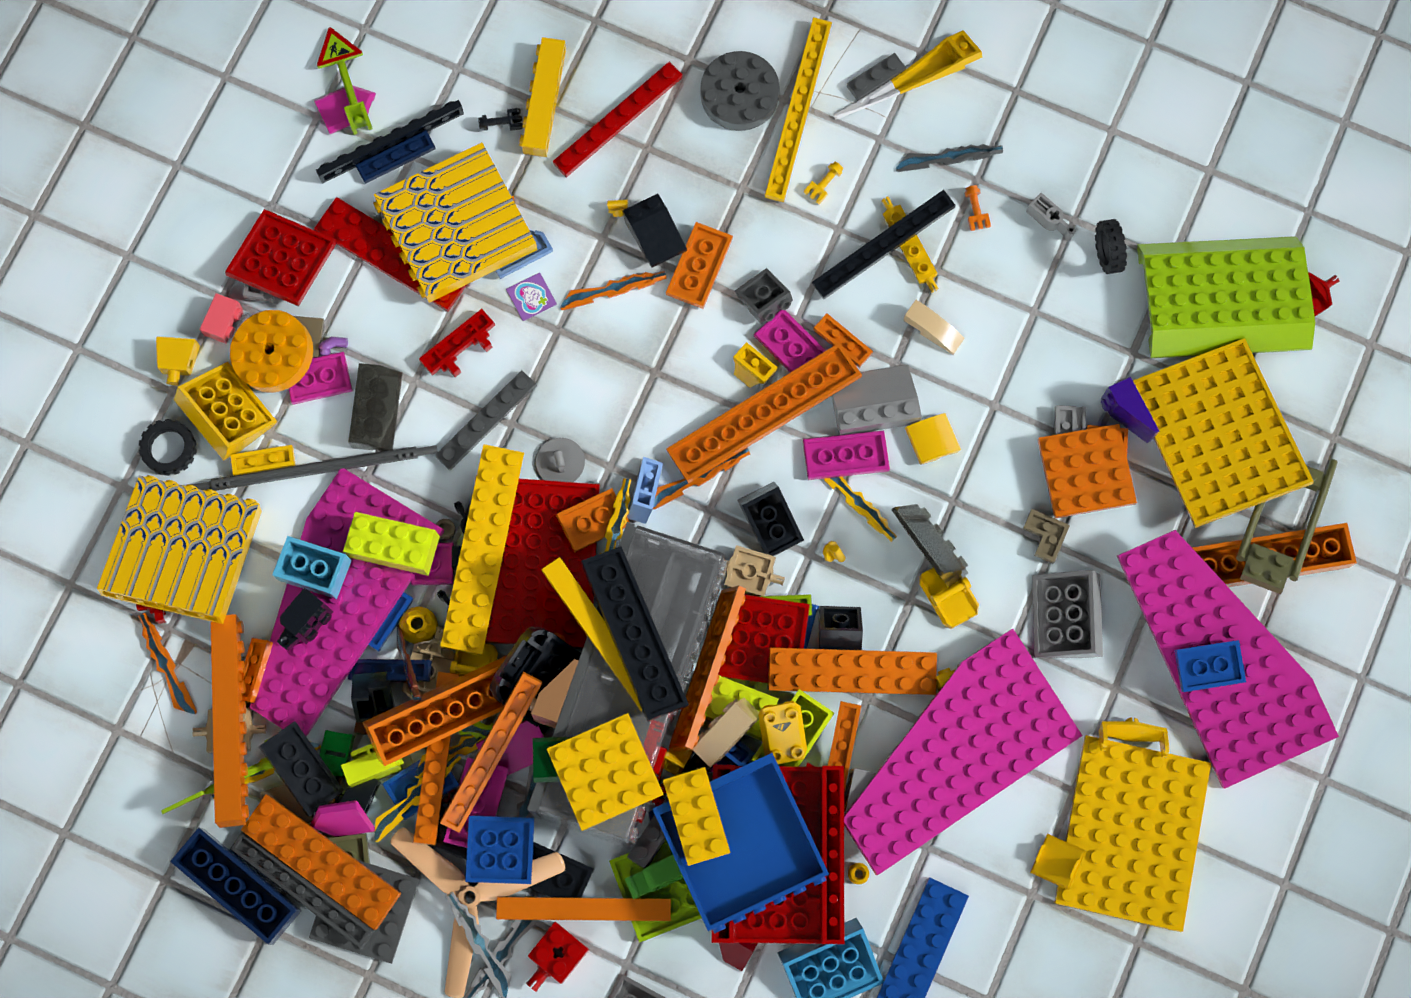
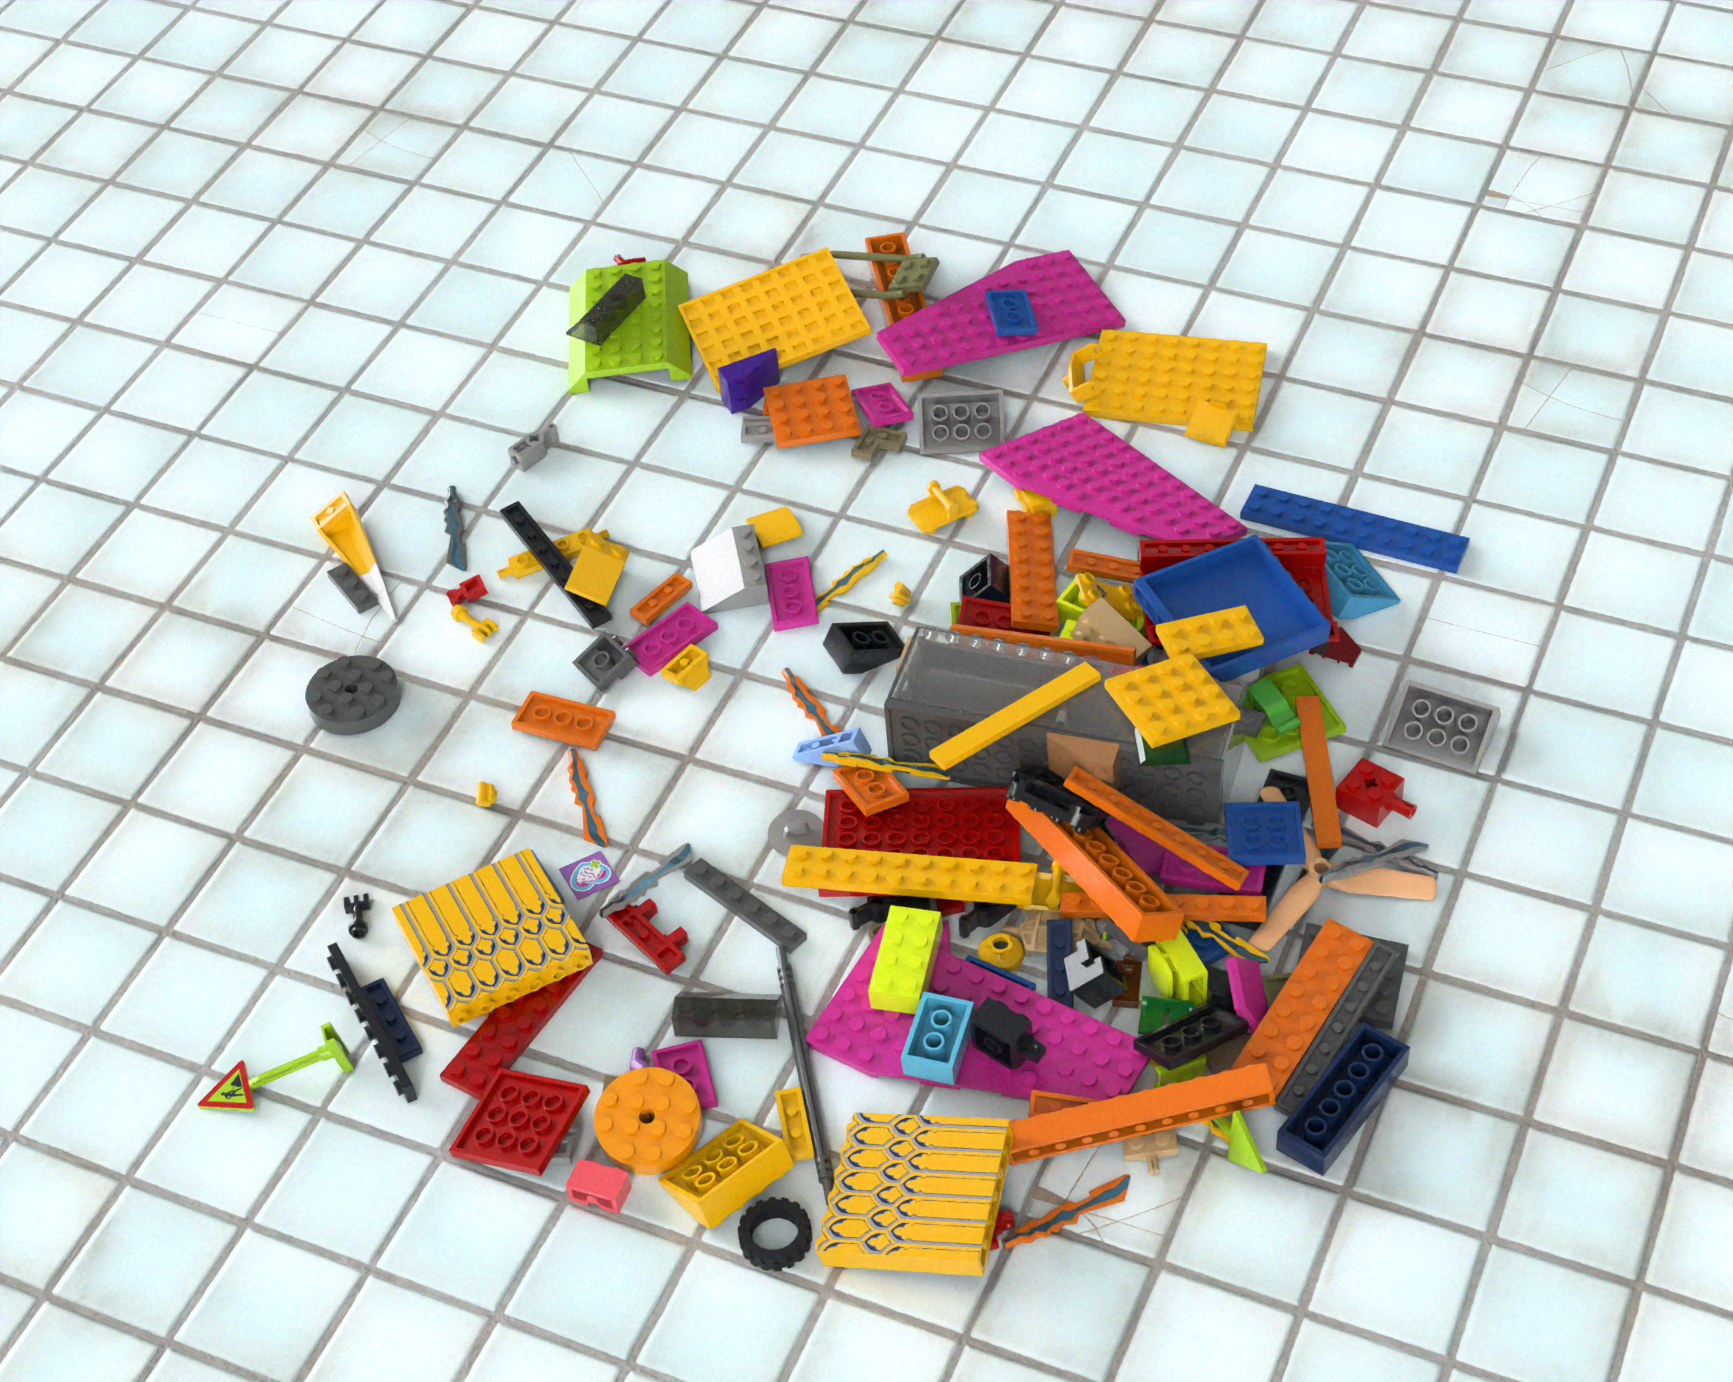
camera: 85 degrees left, 30 degrees down
(176, 357) = (650, 1233): yellow torso -> none
(332, 107) = (315, 1084): dark pink tile -> none
(408, 669) = (1055, 931): copper sword -> none
(534, 361) = (647, 881): none -> light grey sword
(544, 97) = (333, 871): yellow brick -> none
(617, 119) = (372, 806): red plate -> none
(634, 634) = (1013, 680): black plate -> none
(654, 230) = (519, 756): black slope -> none
(764, 412) = (745, 654): orange plate -> none
(798, 110) = (383, 646): yellow plate -> none
(863, 176) = (470, 591): none -> red plate
(868, 281) = (597, 569): none -> yellow slope
(931, 544) = (895, 512): clear smoke slope -> none
(933, 327) = (648, 530): tan slope -> none
(972, 192) = (531, 503): orange hinge -> none
(1099, 539) = (882, 404): none -> dark pink tile
(1110, 246) = (569, 377): black tyre -> none
(1225, 269) = (609, 310): none -> clear smoke slope

